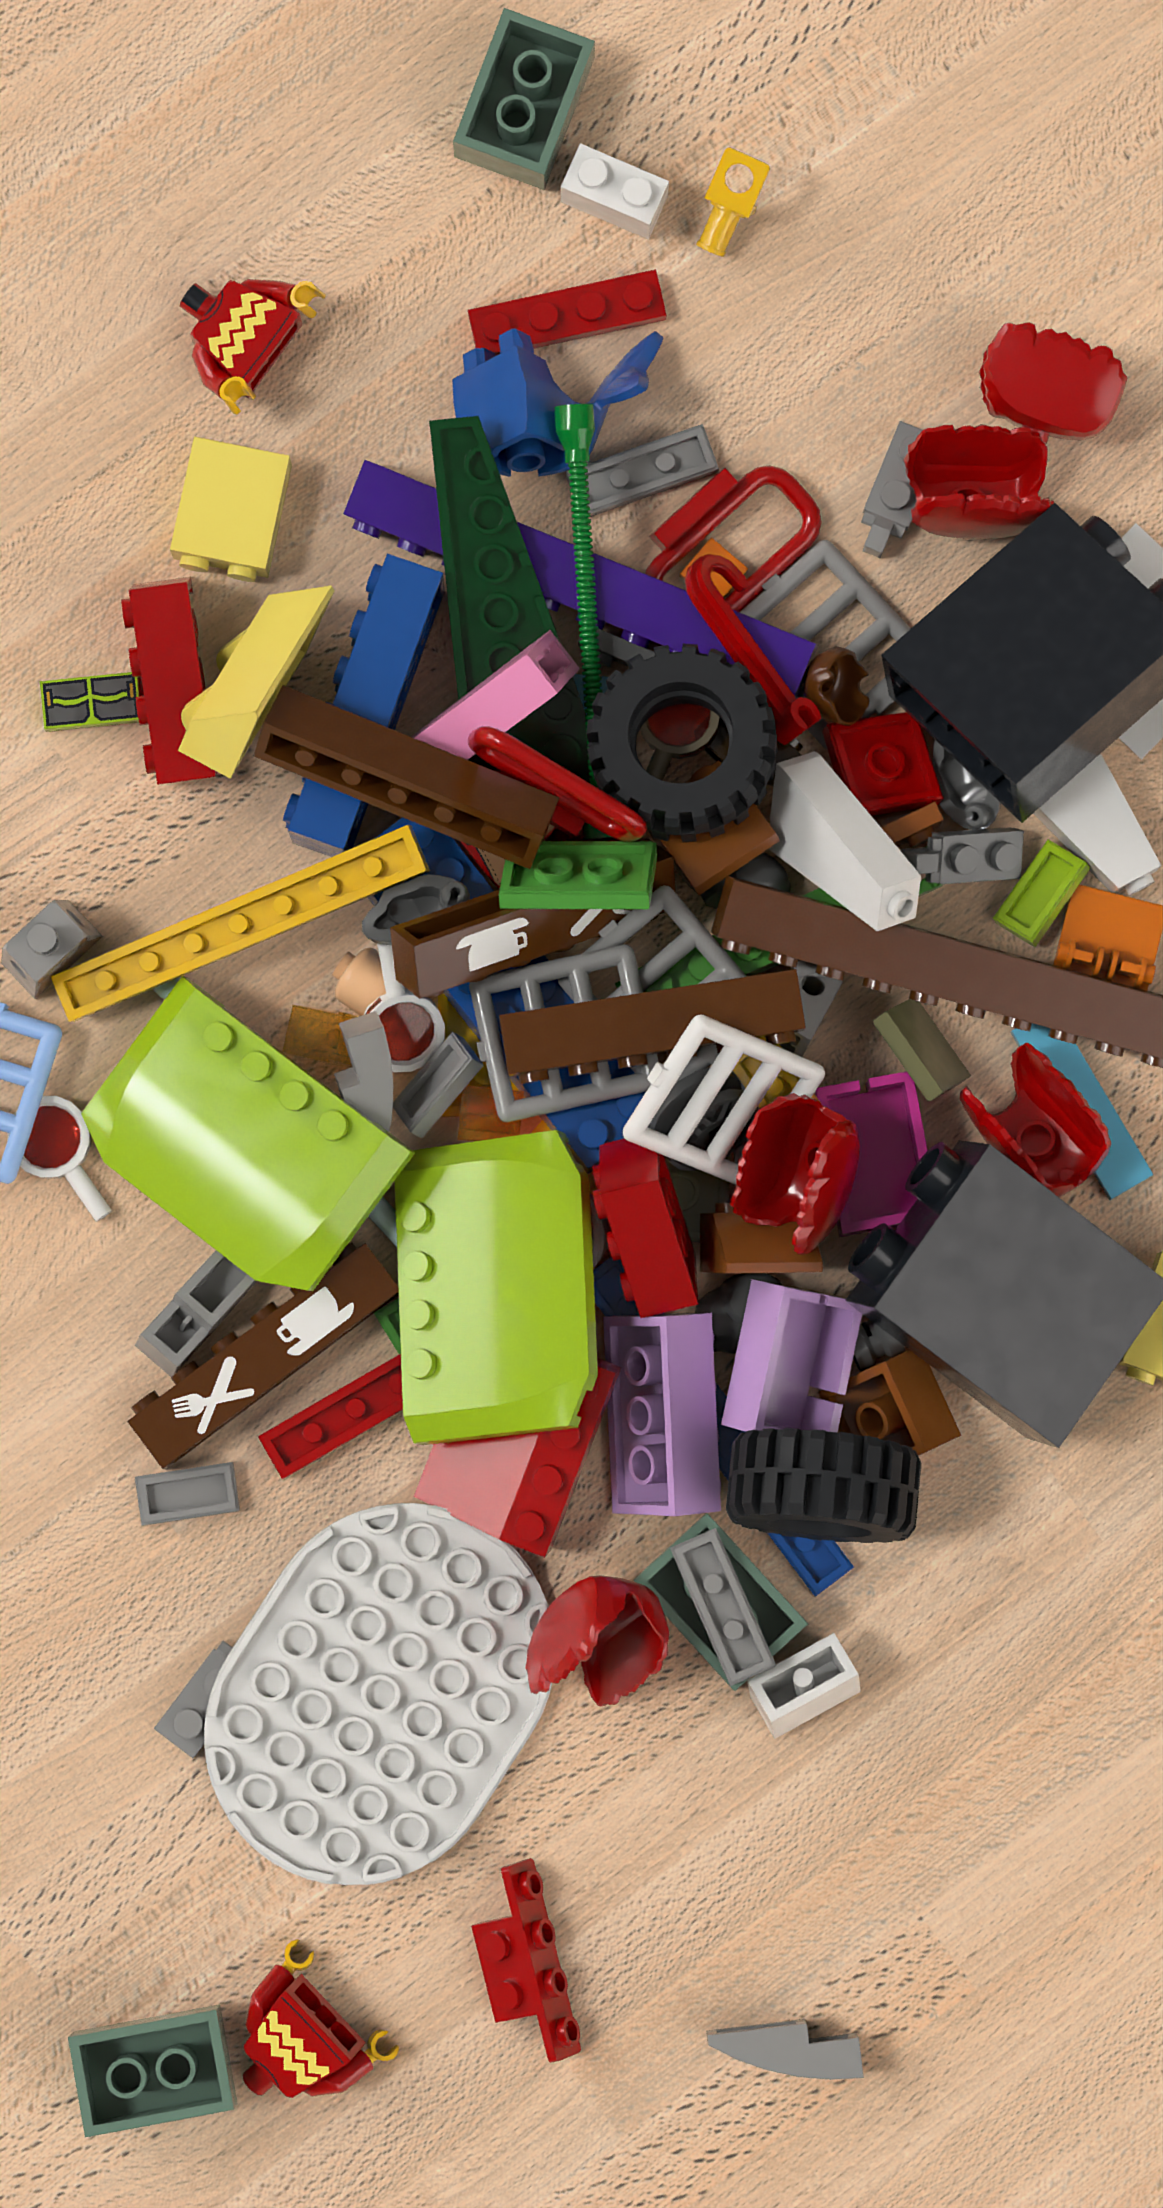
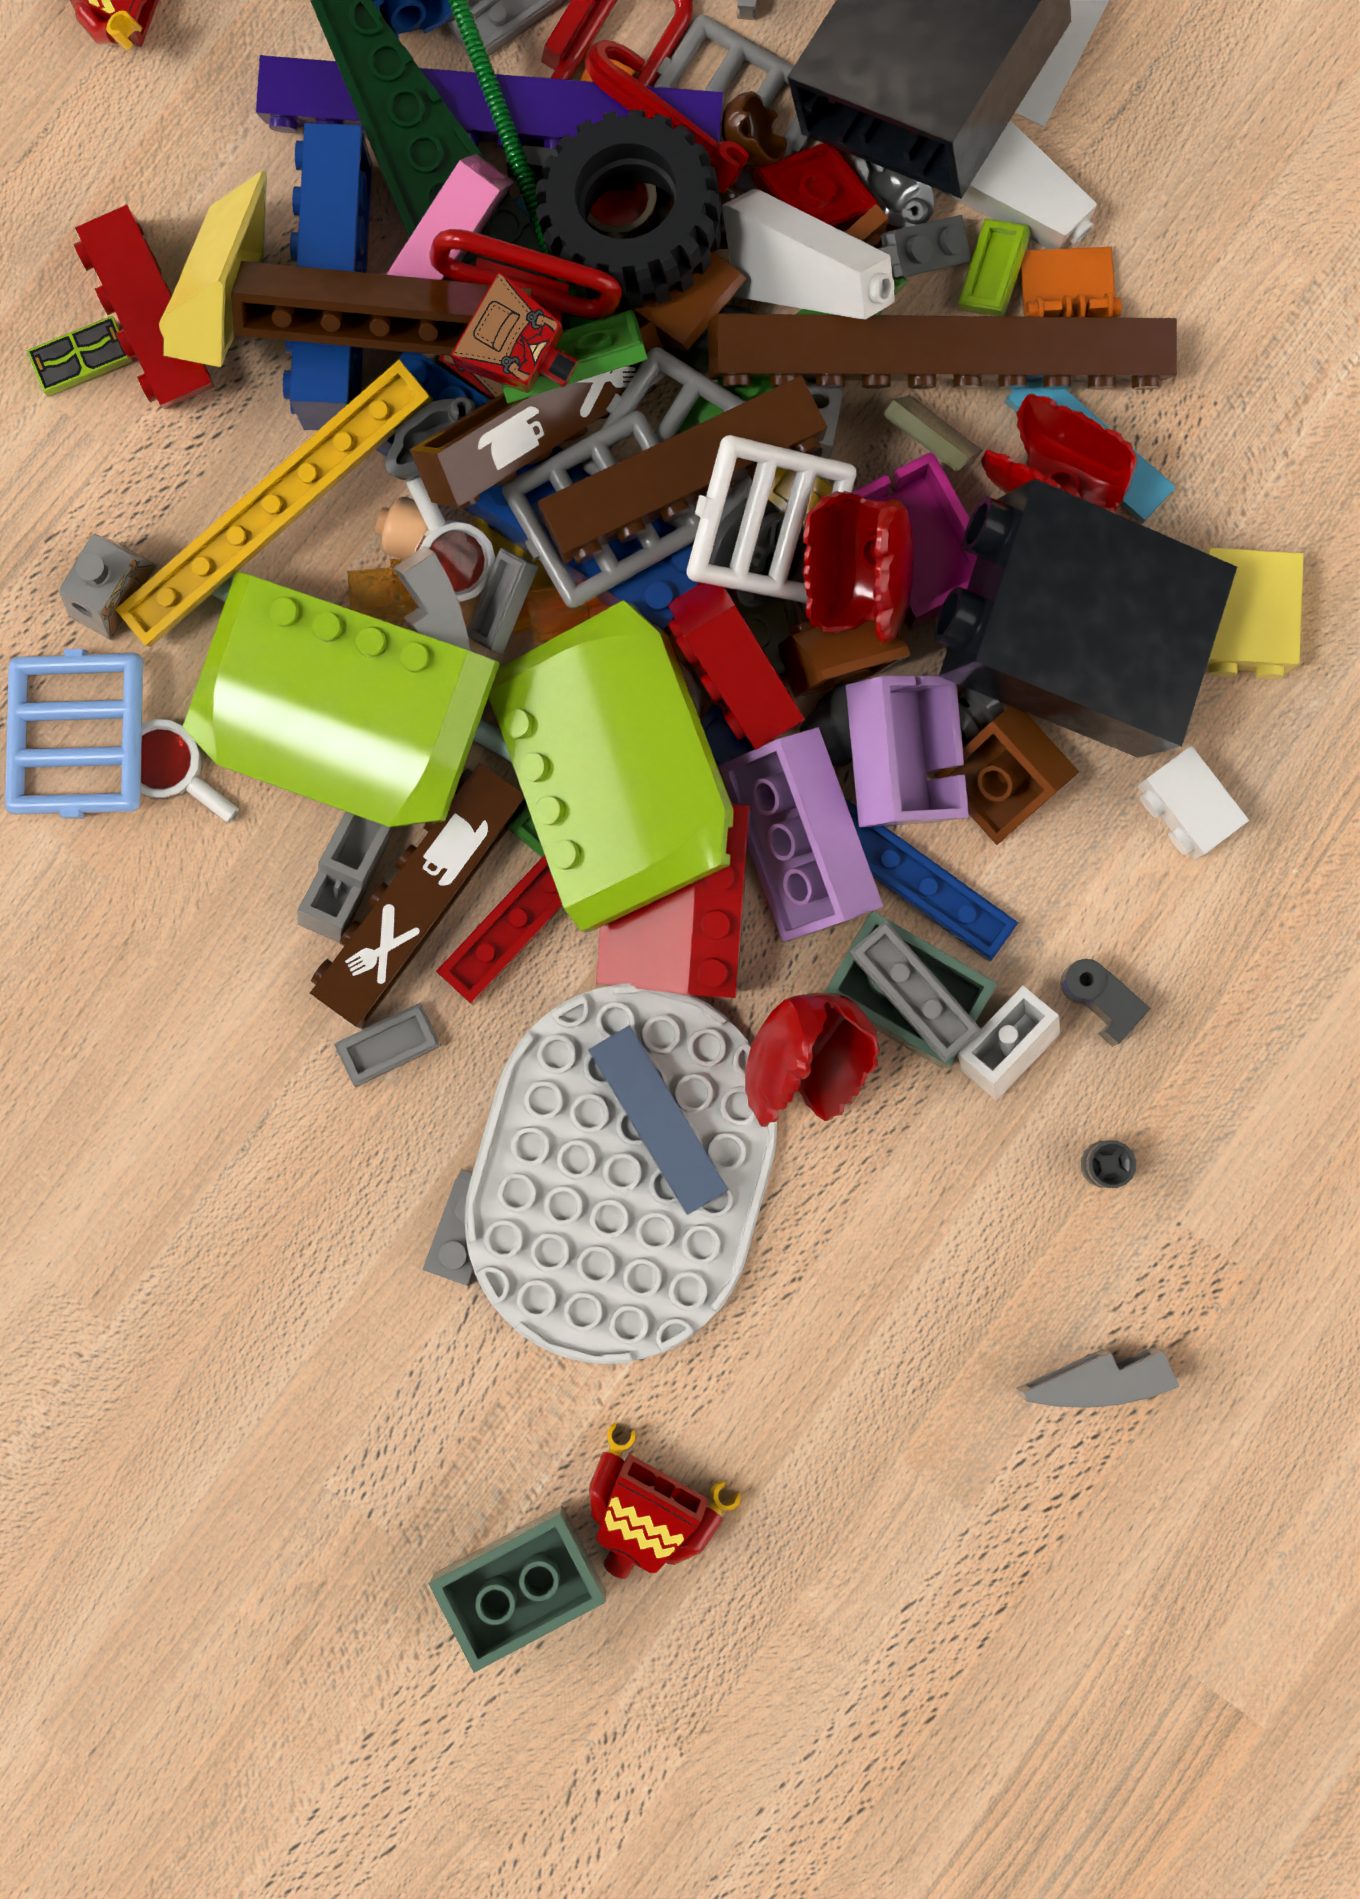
camera: 20 degrees left, 0 degrees up
(230, 509) = (153, 142): light yellow brick -> none
(431, 1653) = (658, 1120): none -> sand blue tile
(523, 857) = (513, 340): none -> torso
(524, 1965) = (831, 1380): red bracket -> none
(823, 1485) = (975, 847): black tyre -> none
(871, 1842) = (1116, 1167): none -> dark grey wheel
(907, 1652) = (1105, 996): none -> dark grey leg
(1064, 1501) = (1191, 804): none -> white brick

